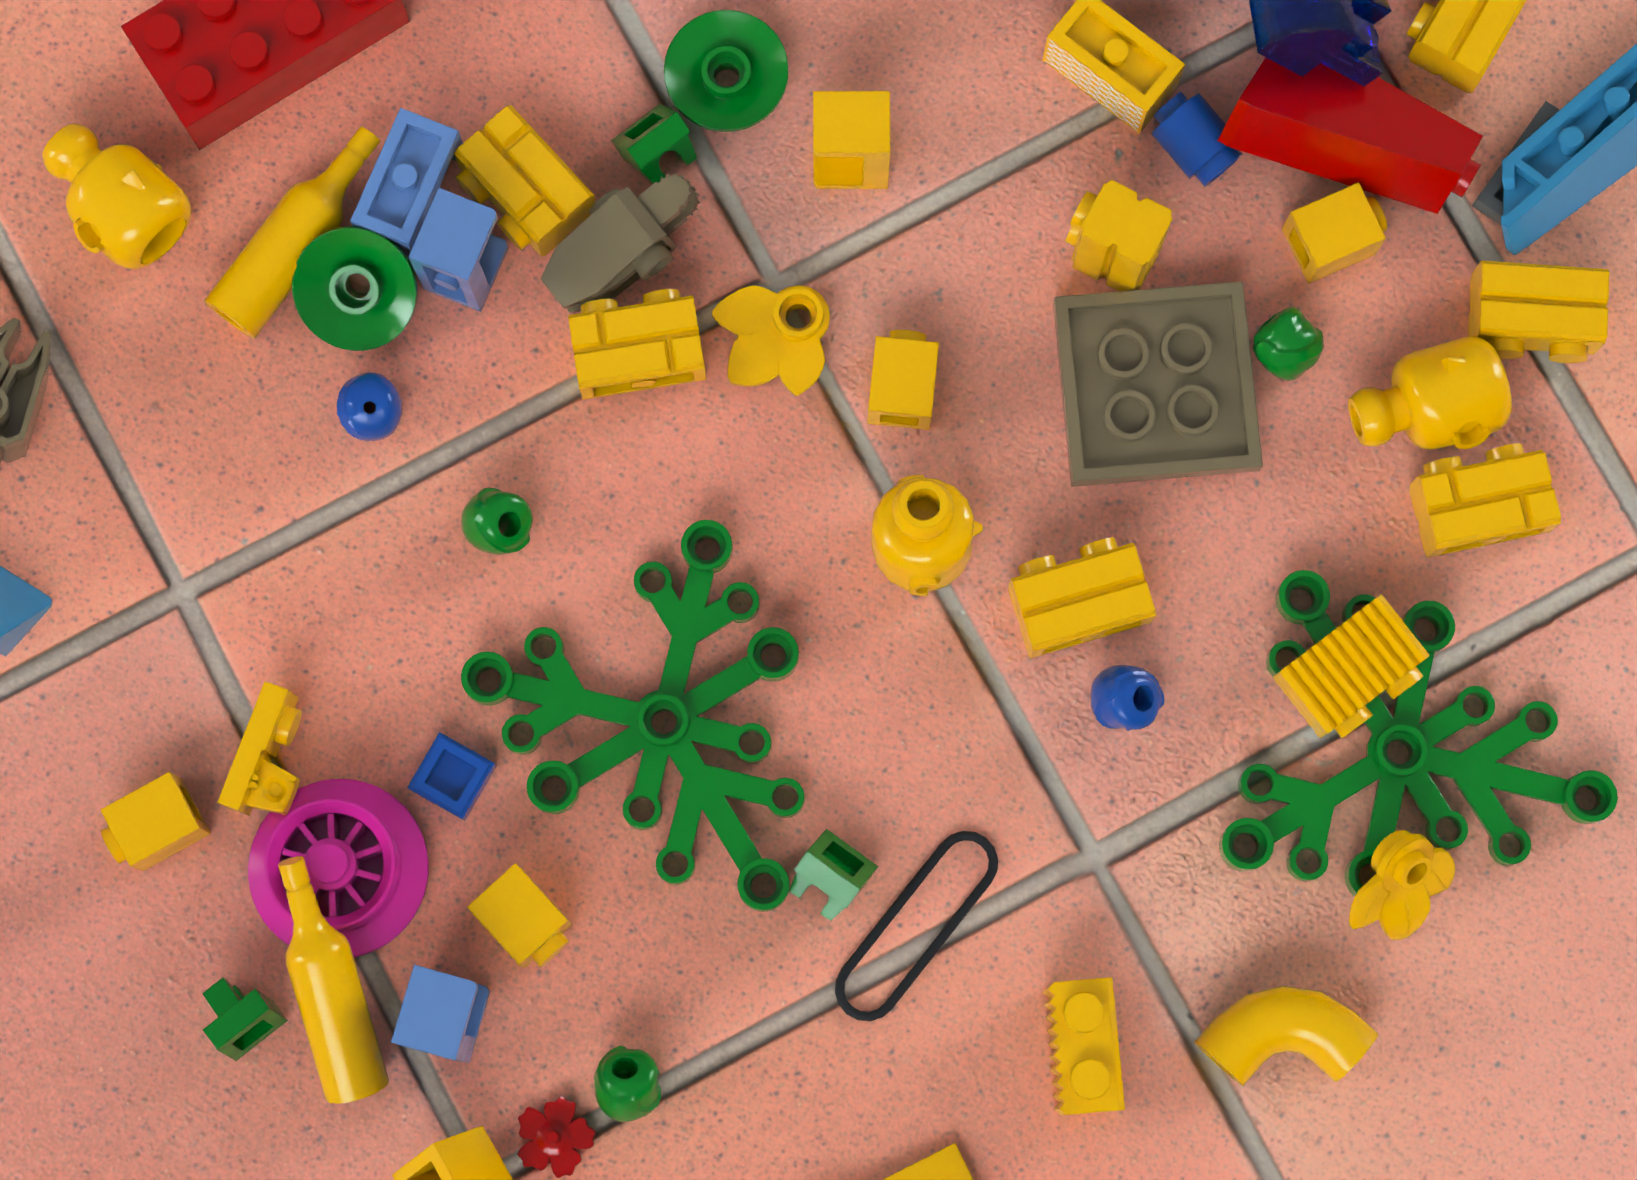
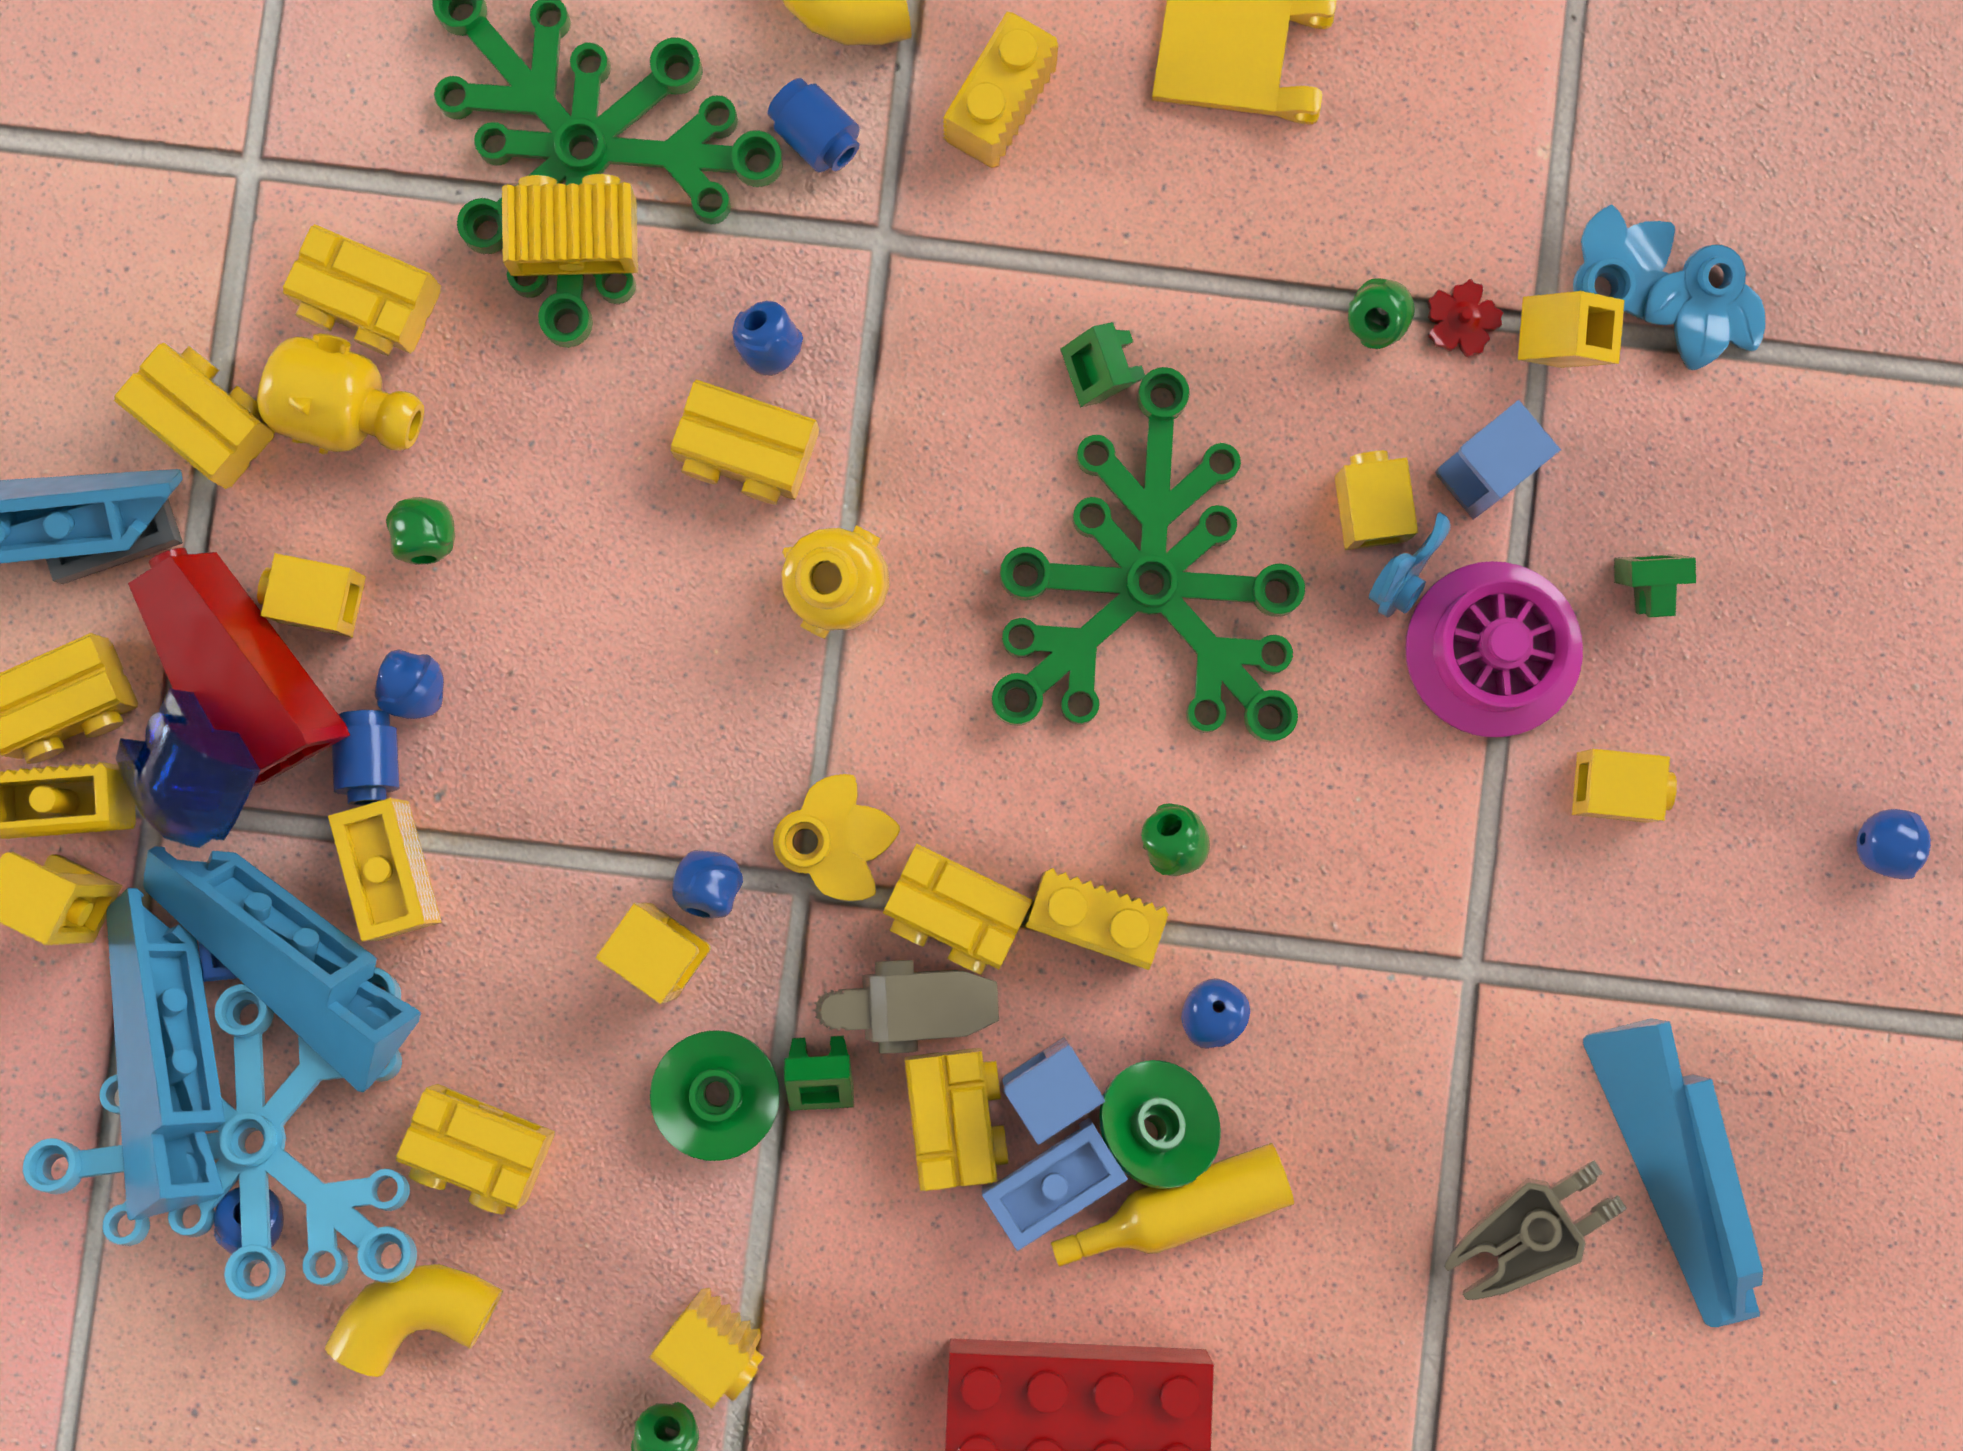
camera: 150 degrees left, 5 degrees up
(117, 198) = (1307, 1347): yellow piece -> none
(252, 778) = (1516, 764): yellow hinge -> none
(330, 996) = (1576, 536): yellow piece -> none
(452, 776) = (1352, 659): blue tile -> none
(456, 864) = (1399, 581): none -> dark azure plate
(517, 413) = (1097, 918): none -> yellow brick
(852, 227) = (707, 884): none -> blue piece
(903, 380) = (757, 723): yellow brick -> none
(935, 945) = (1067, 309): black piece -> none
(1118, 236) = (493, 708): yellow brick -> none
(1157, 384) = (552, 574): dark tan plate -> none
(1204, 216) = (409, 685): none -> blue piece
(1218, 906) = (814, 125): none -> blue brick
(1404, 881) = (650, 42): yellow plate -> none

